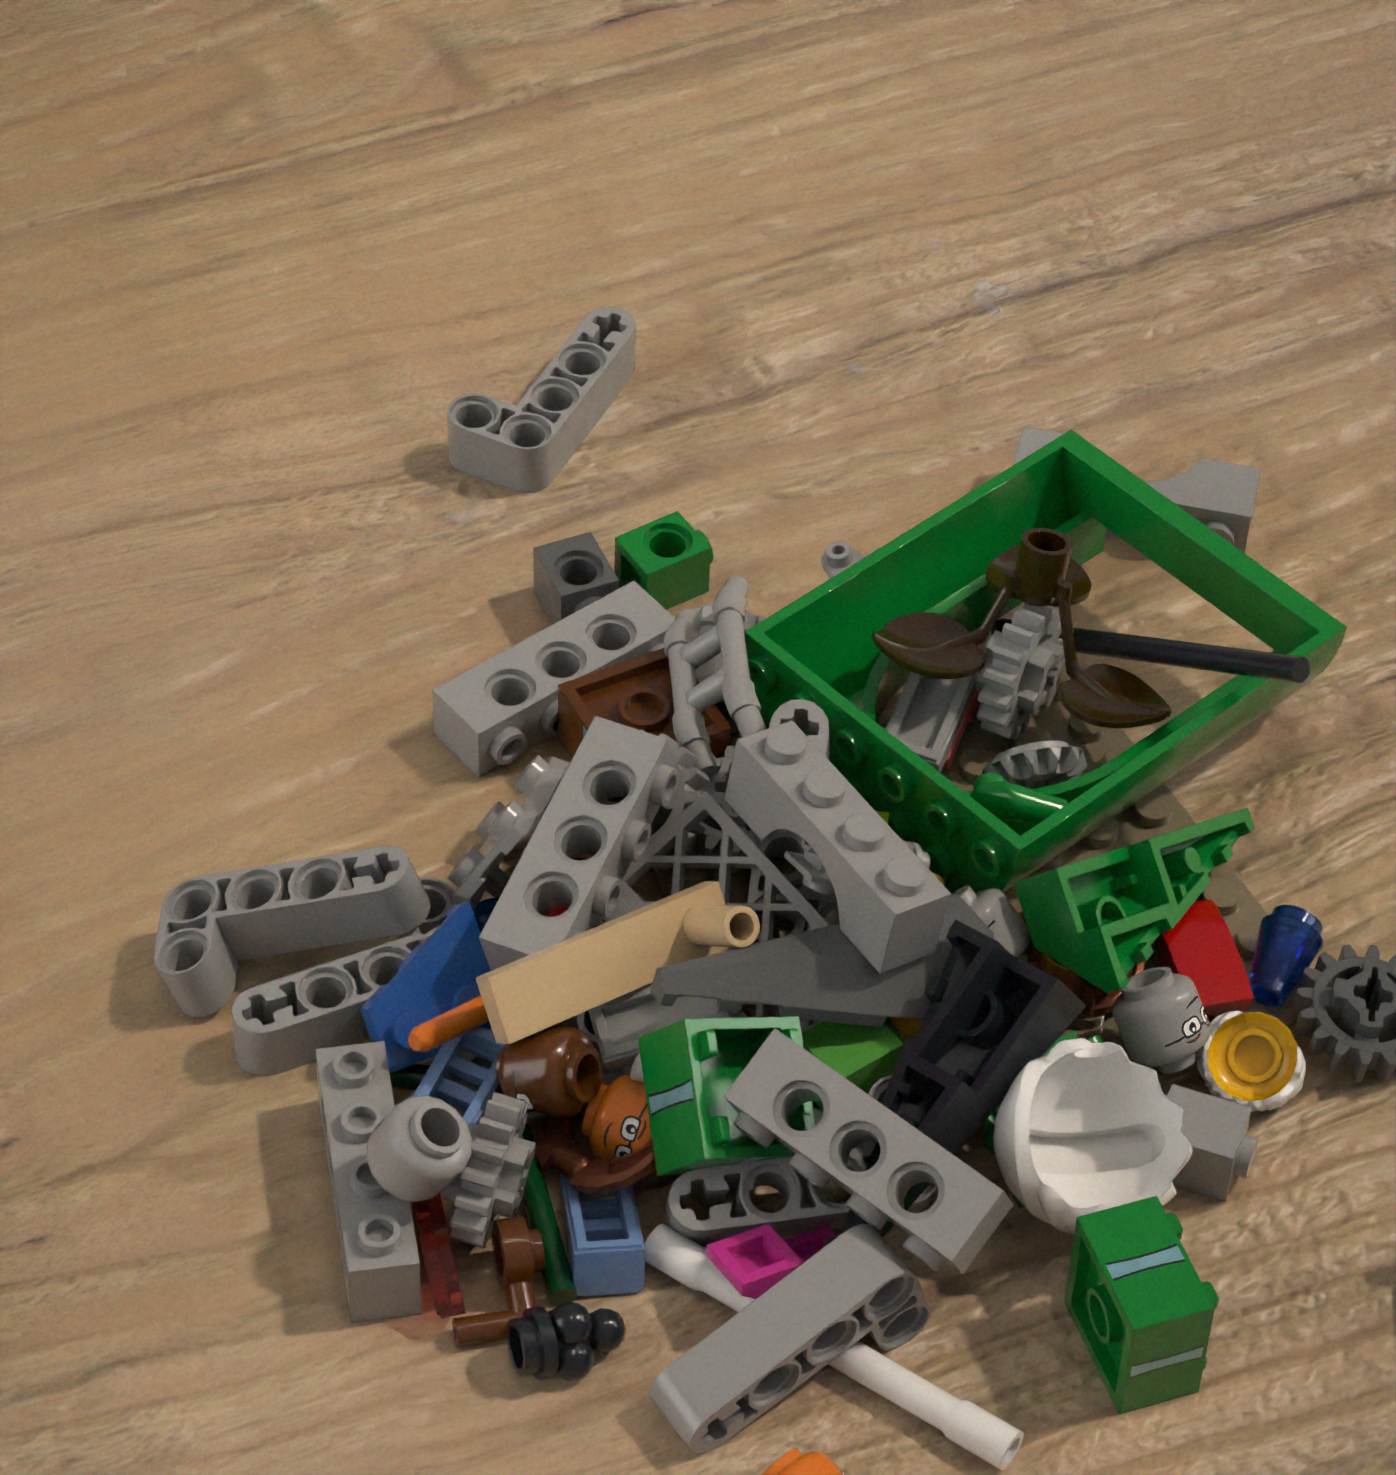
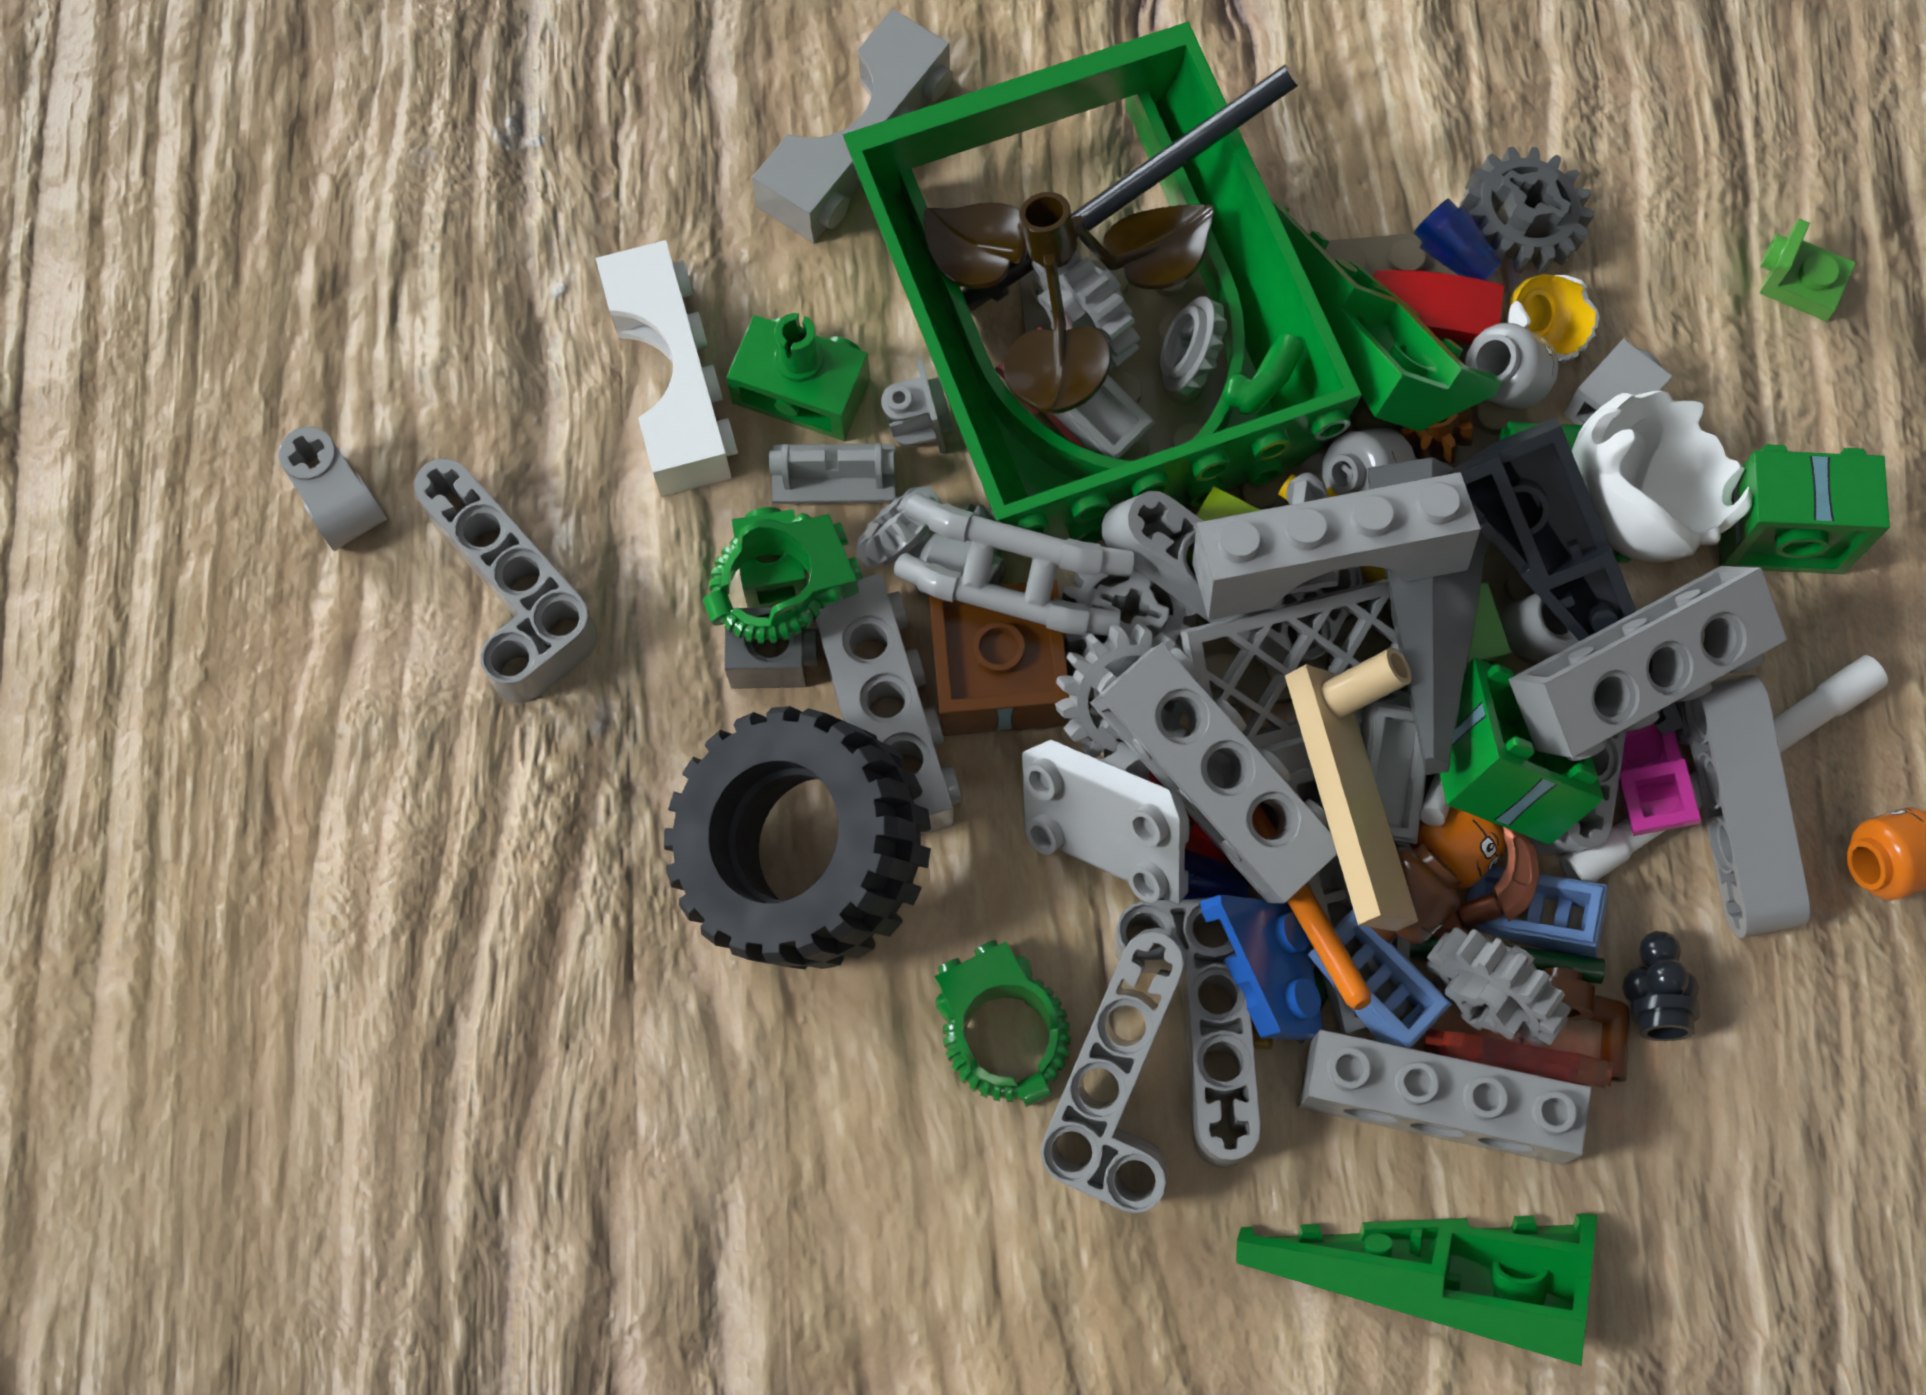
camera: 65 degrees left, 25 degrees up
(201, 1257) = (1499, 1283): none -> green wedge
(303, 809) = (988, 977): none -> green piece
(391, 623) = (722, 824): none -> black tyre
(419, 1148) = (1512, 1045): light grey head -> none
(575, 272) = (331, 491): none -> light grey piece
(653, 564) = (809, 540): none -> green piece
(756, 473) = (681, 429): none -> white arch
(767, 569) = (832, 473): none -> light grey hinge
(852, 507) = (799, 375): none -> green brick

